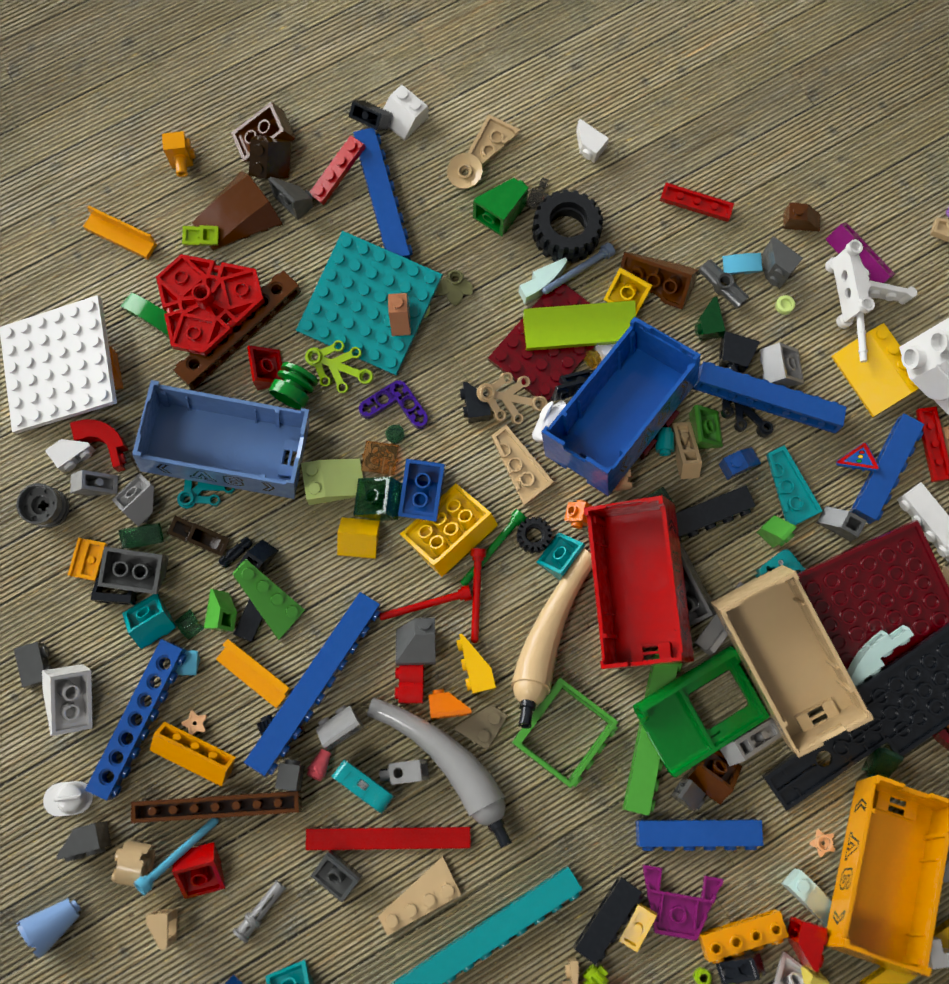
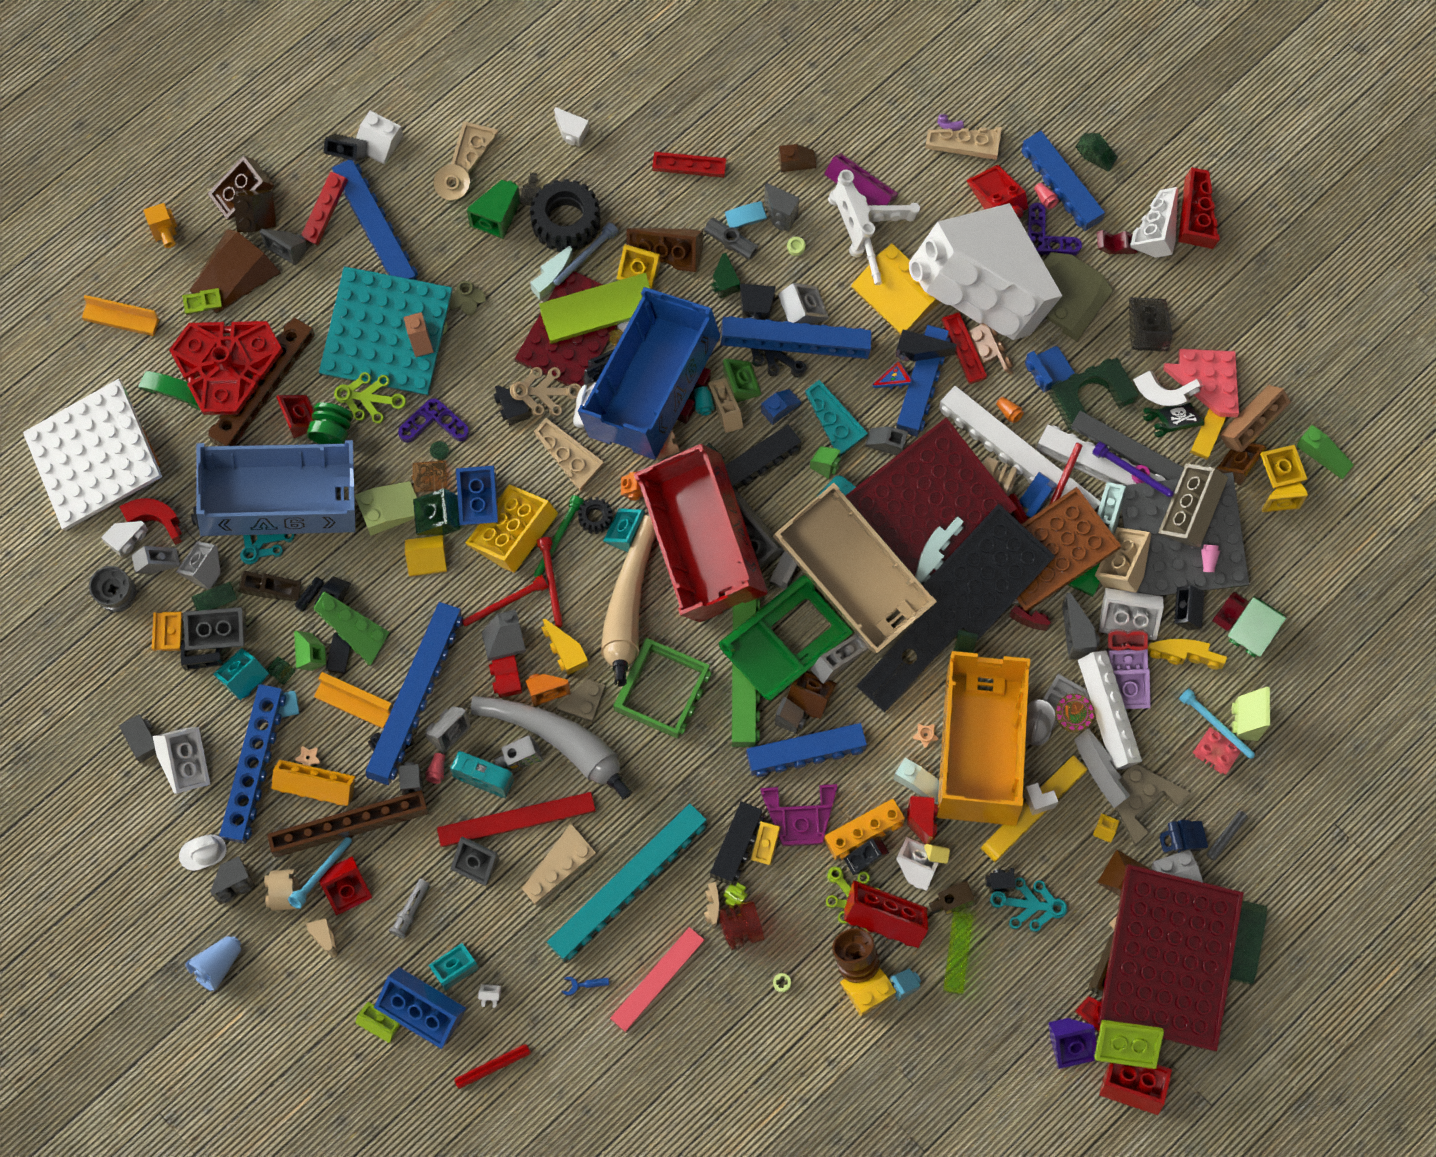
camera: 10 degrees left, 5 degrees down
(893, 435) = (922, 347): none -> black slope

